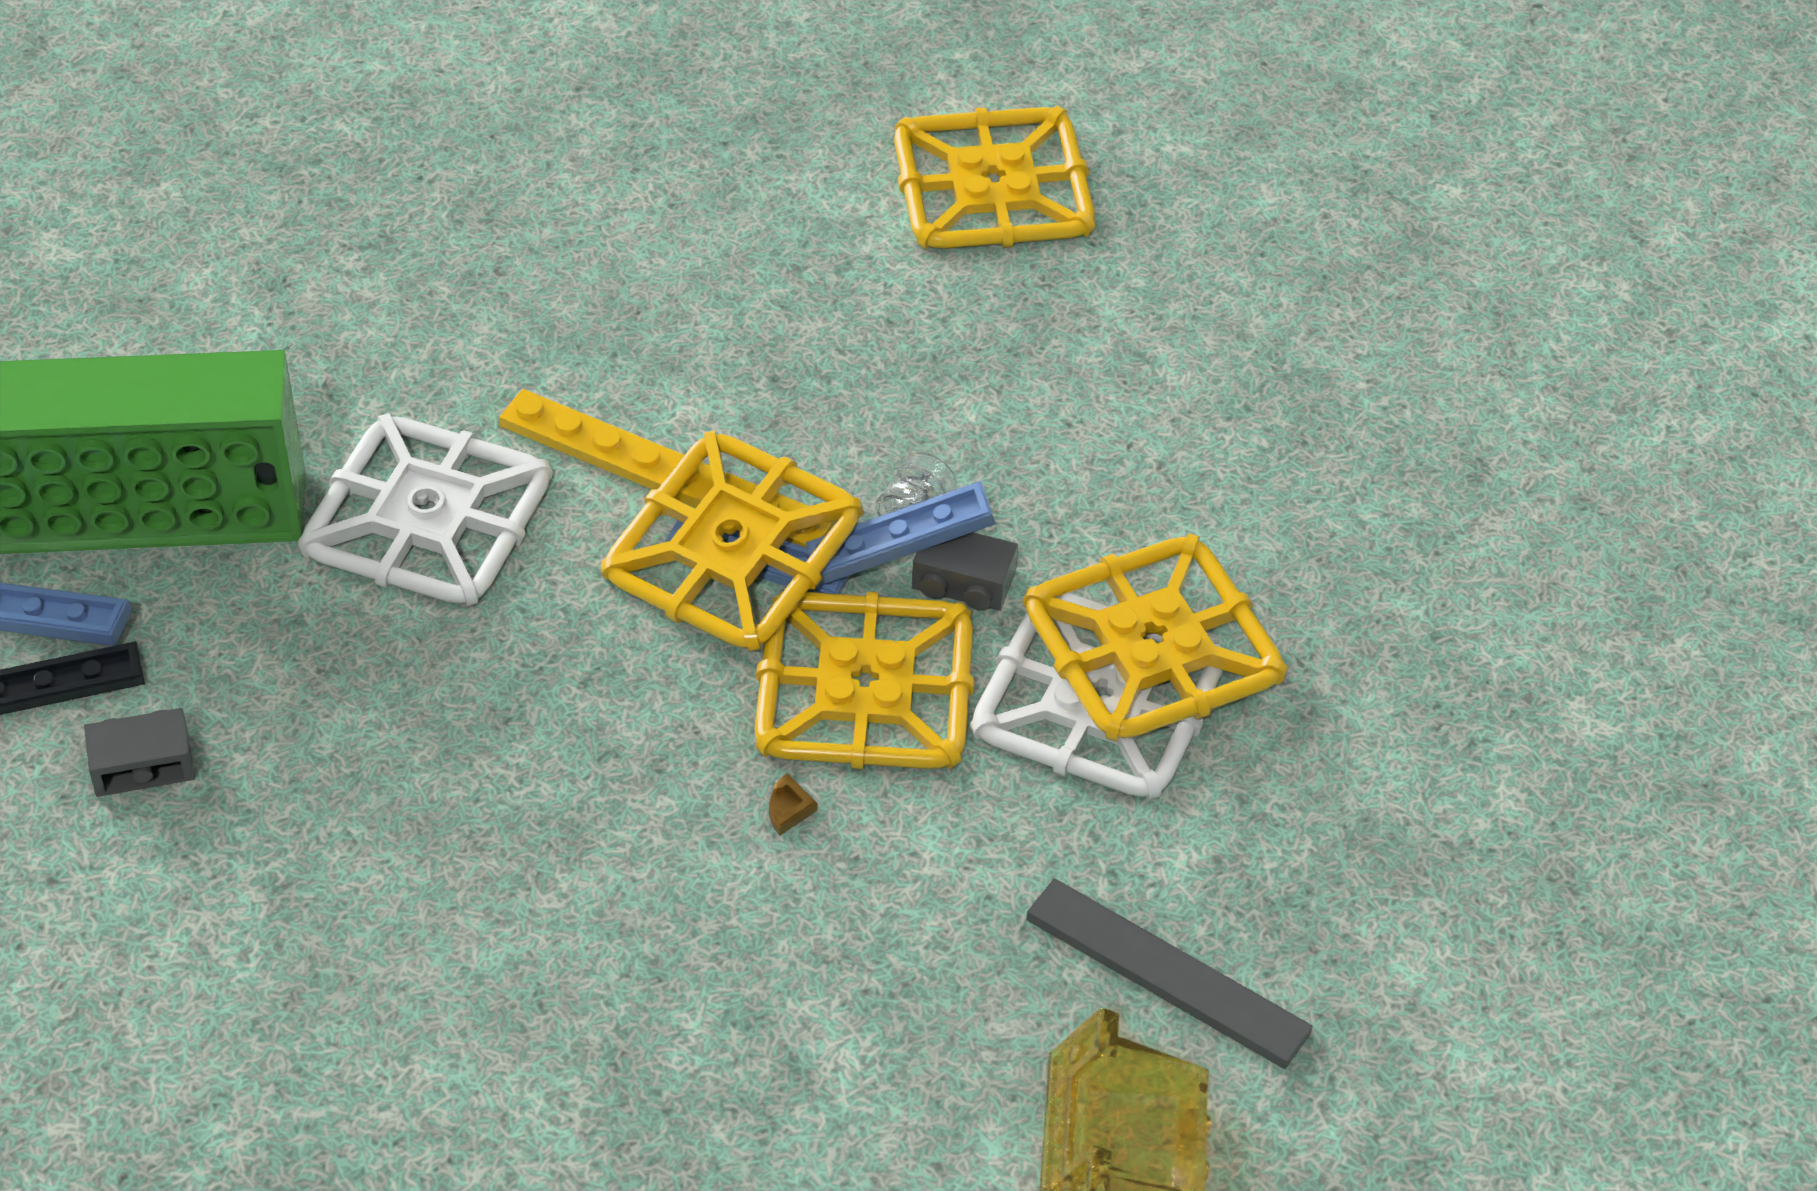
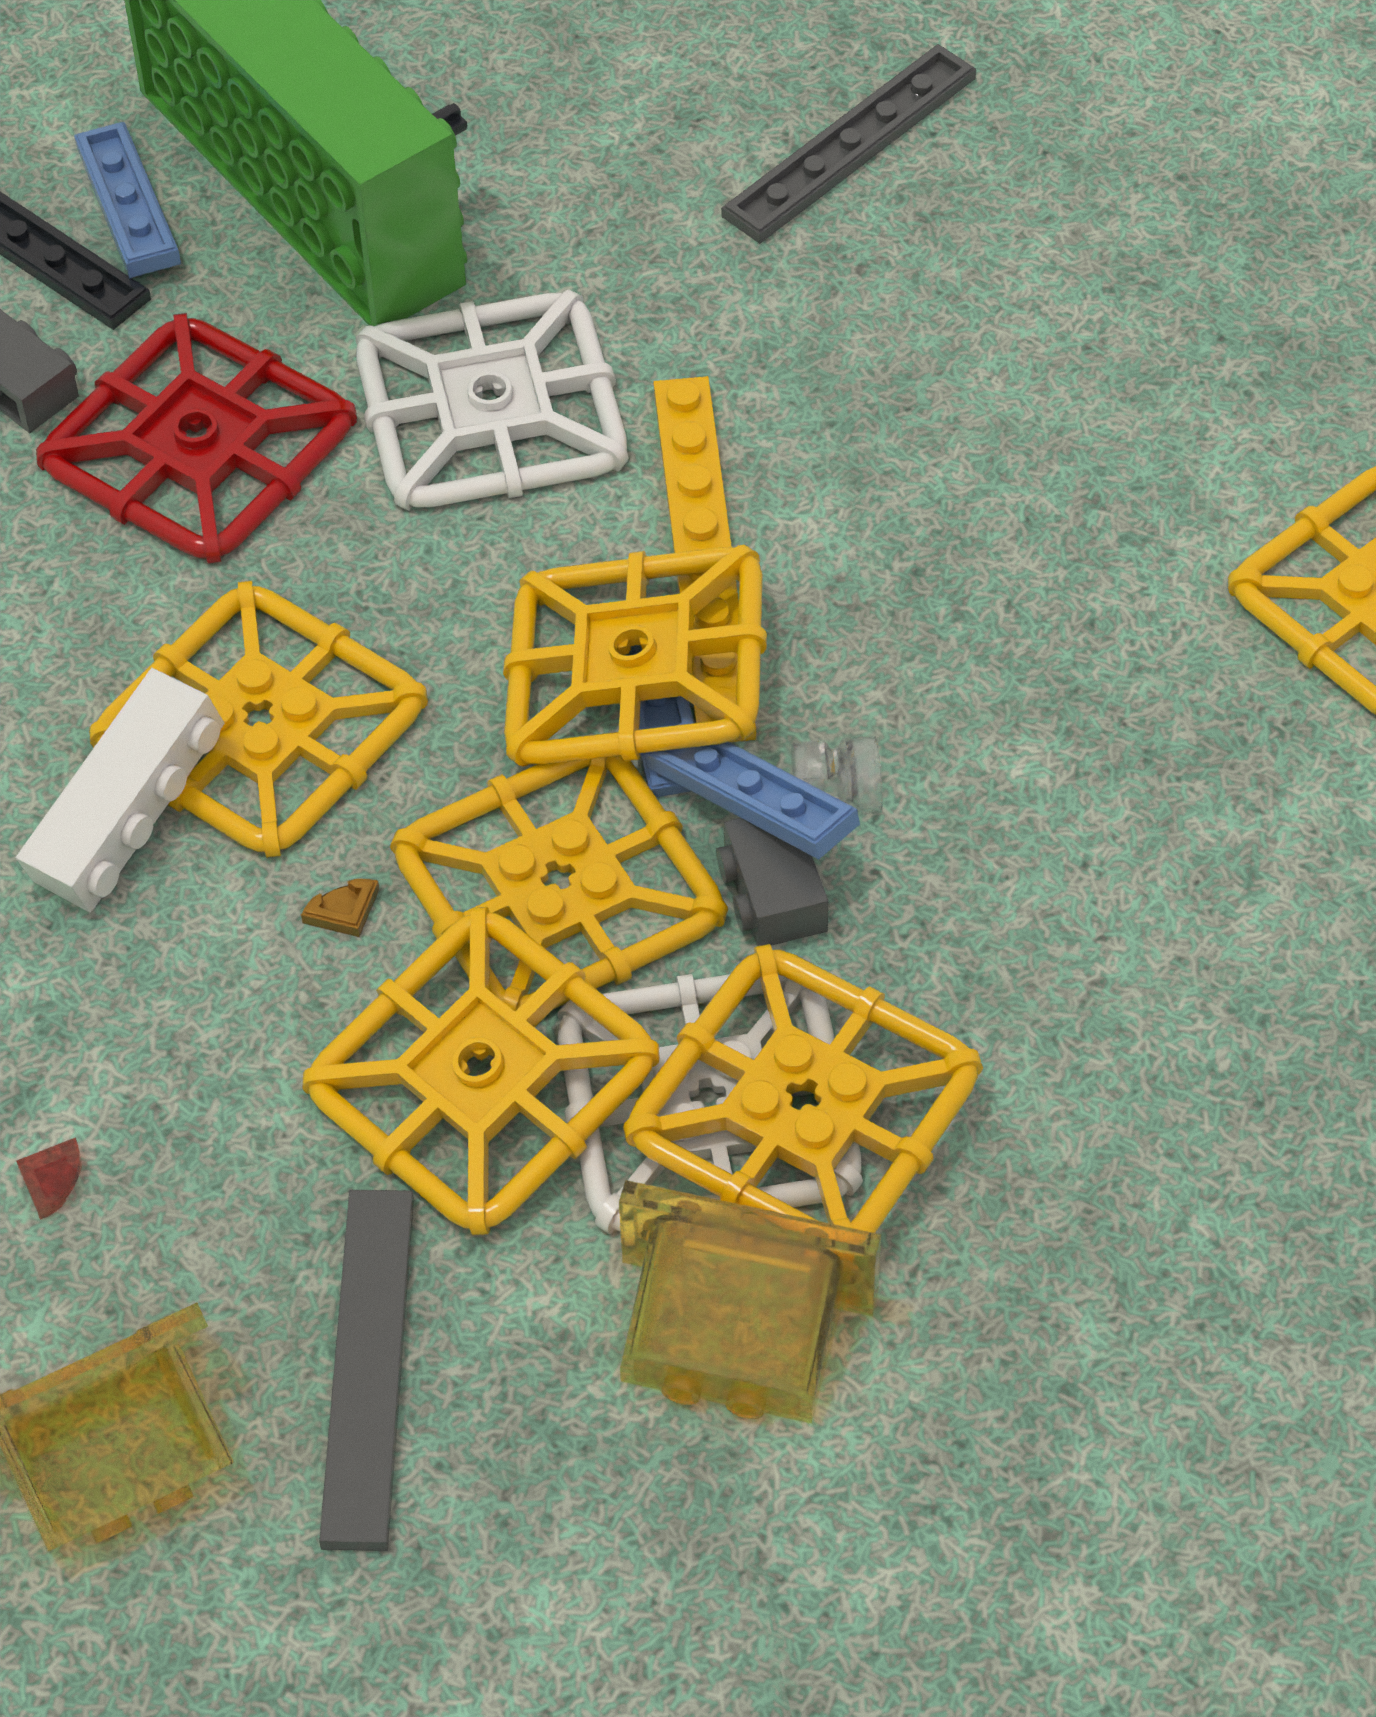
camera: 60 degrees right, 5 degrees up
(286, 704) = (199, 463): none -> red plate
(388, 220) = (848, 143): none -> dark grey tile
(575, 796) = (294, 706): none -> yellow plate
(603, 866) = (121, 790): none -> white brick
(880, 1077) = (51, 1175): none -> clear red tile
(978, 815) = (480, 1104): none -> yellow plate
(1275, 748) = (738, 1299): none -> clear yellow windscreen

